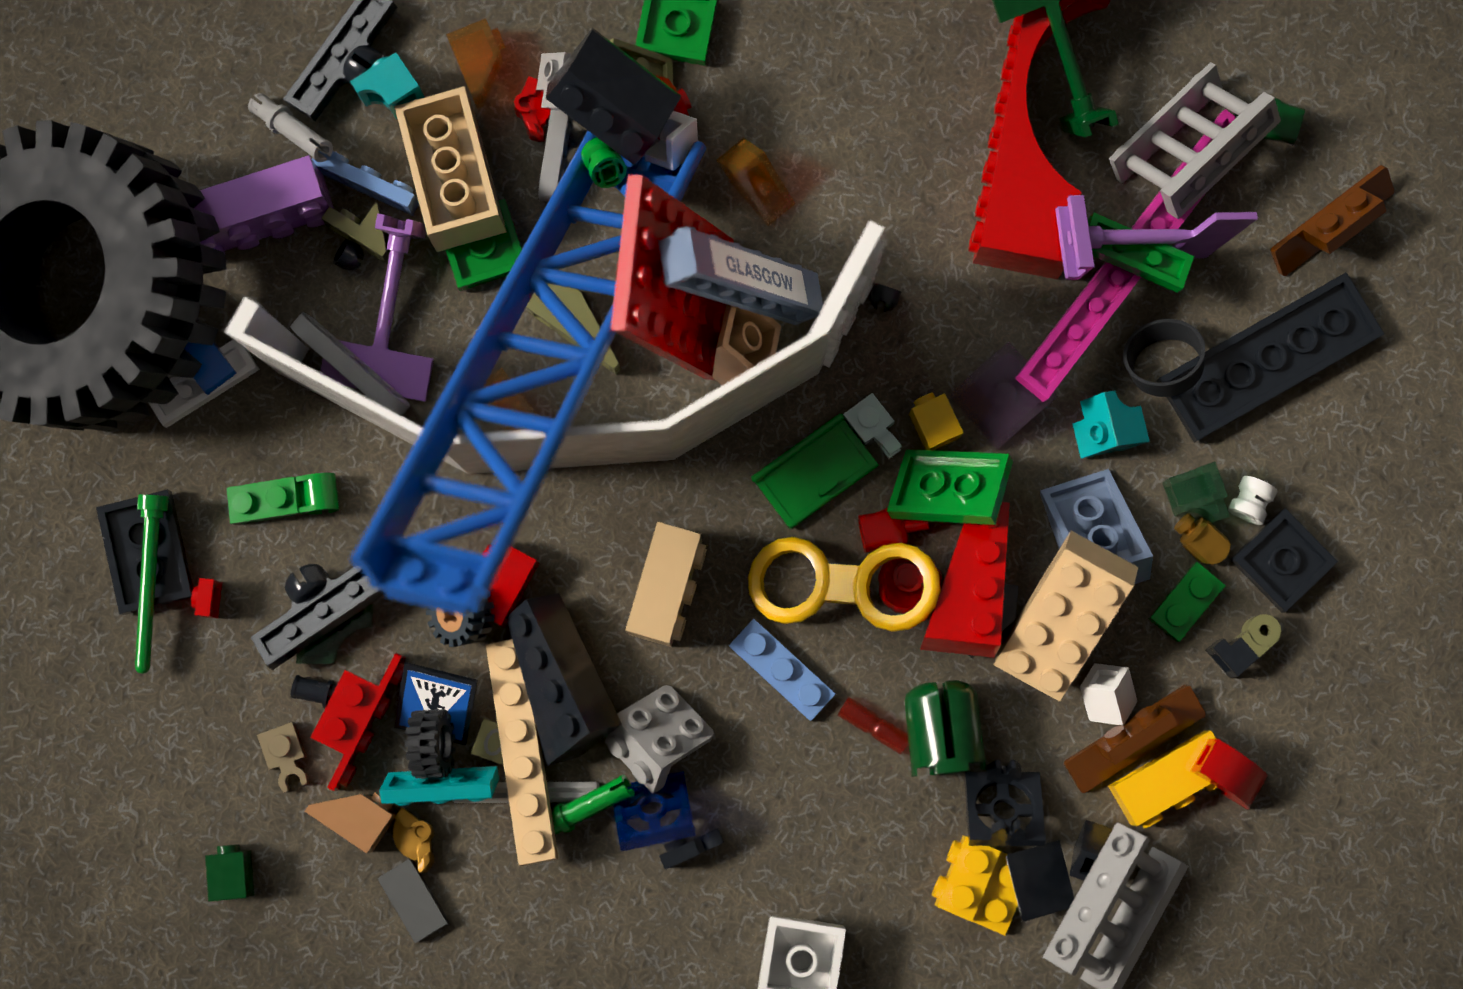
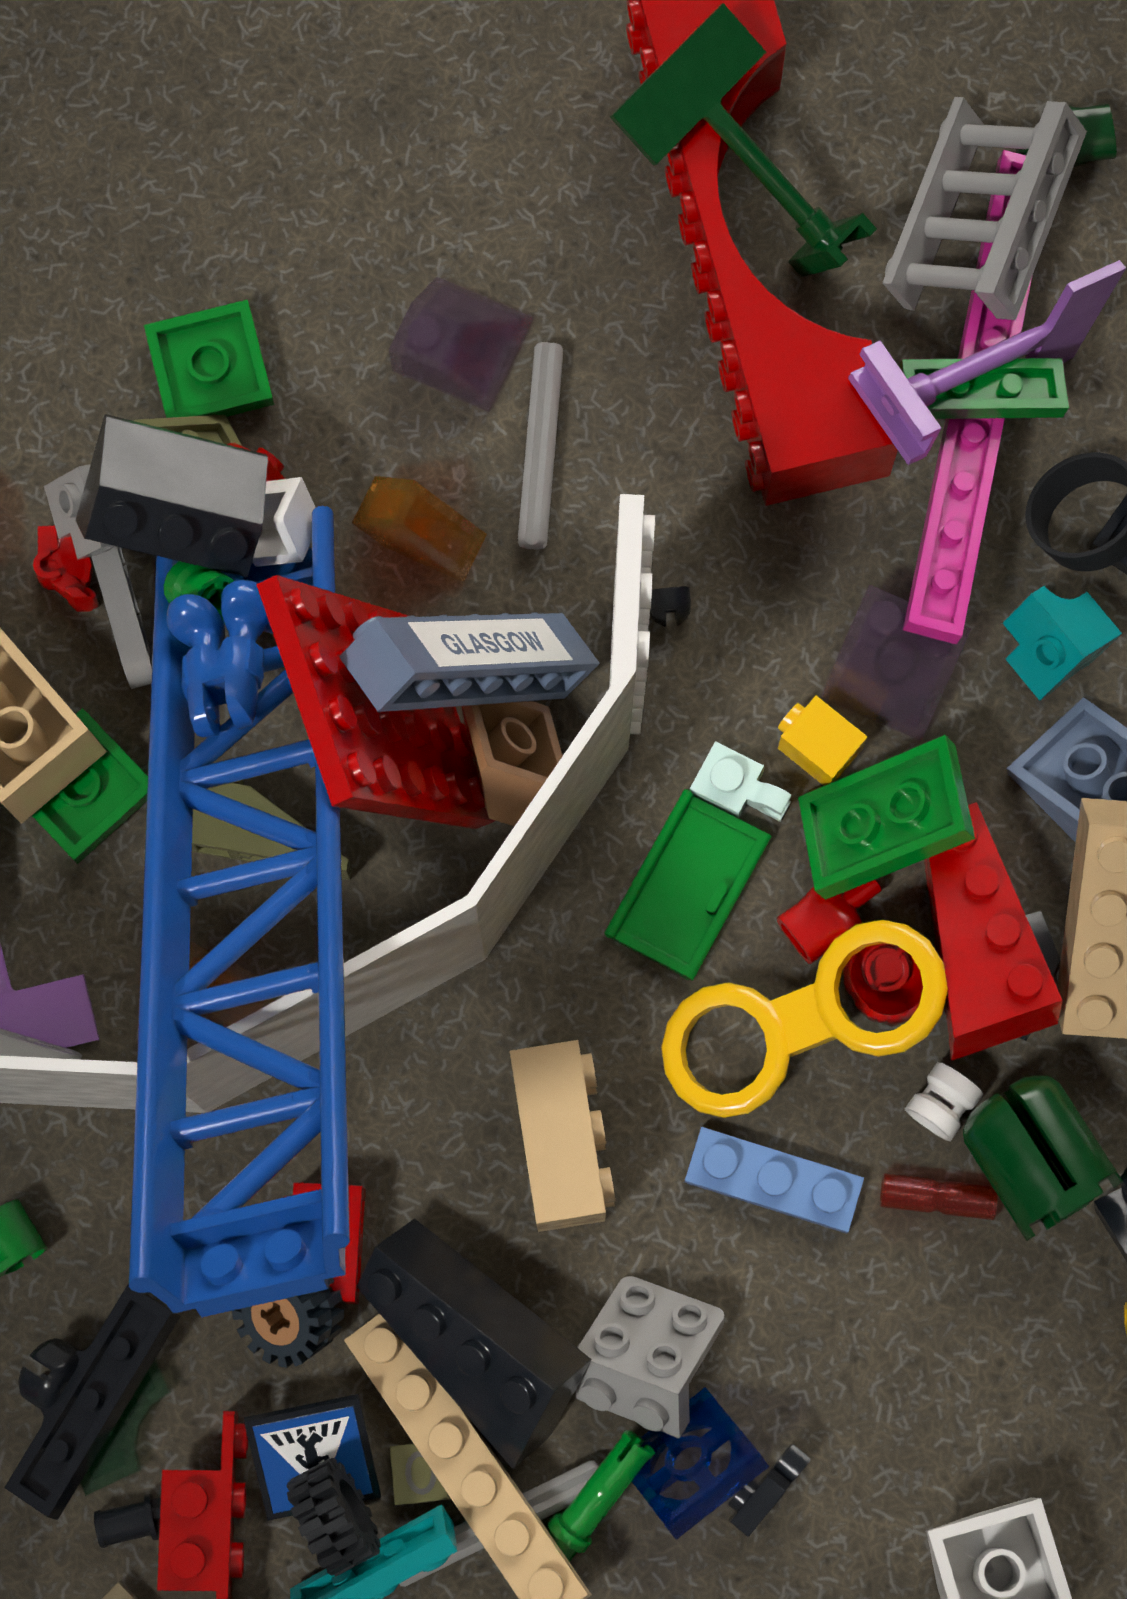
camera: 25 degrees left, 5 degrees down
(589, 213) = (219, 667): none -> blue piece
(833, 77) = (458, 342): none -> slope
(853, 164) = (540, 446): none -> light grey axle
(912, 668) = (944, 1101): none -> white wheel

